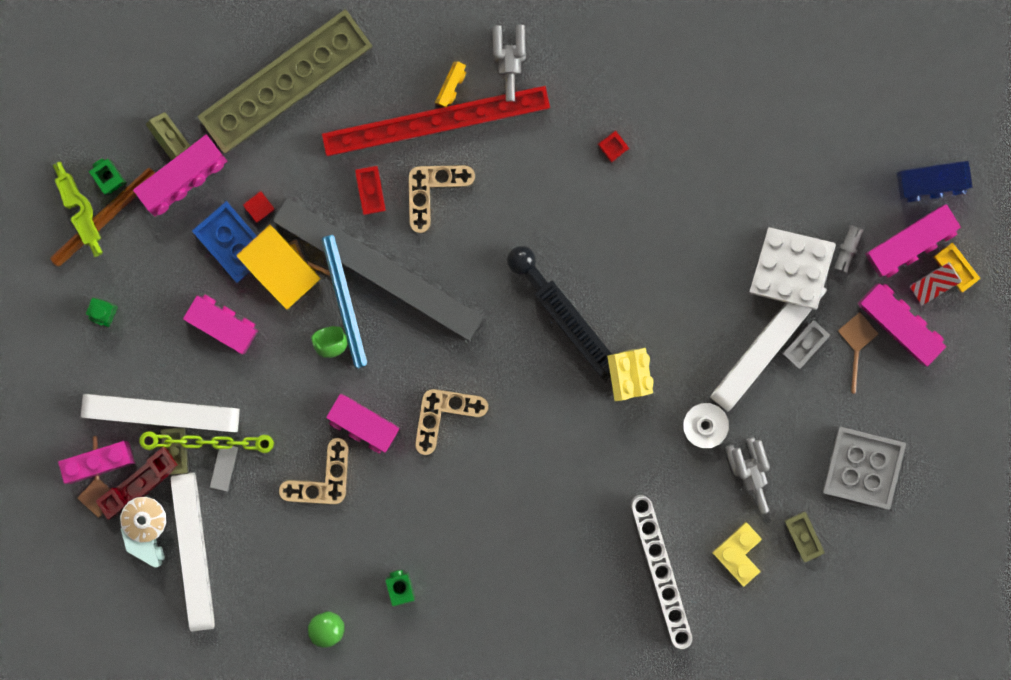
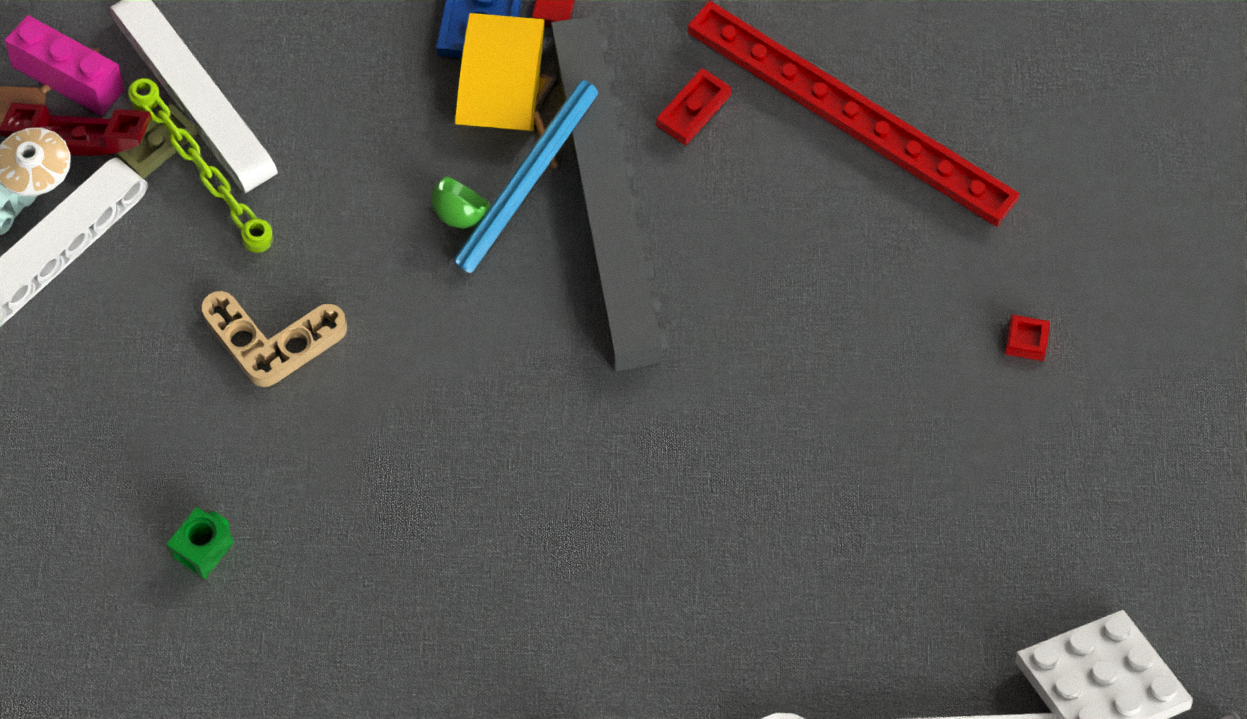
camera: 50 degrees right, 25 degrees down
(221, 323) = (369, 71): dark pink brick -> none
(224, 468) = (183, 214): light grey piece -> none
(326, 629) = (63, 499): bright green hair -> none
(362, 424) = (386, 324): dark pink brick -> none
(431, 182) = (765, 164): tan beam -> none
(443, 406) = (496, 402): tan beam -> none
(455, 76) = (924, 87): yellow plate -> none
(509, 58) = (1014, 123): light grey plant -> none
(522, 261) = (776, 342): black gear -> none
(630, 374) = (759, 588): light yellow plate -> none

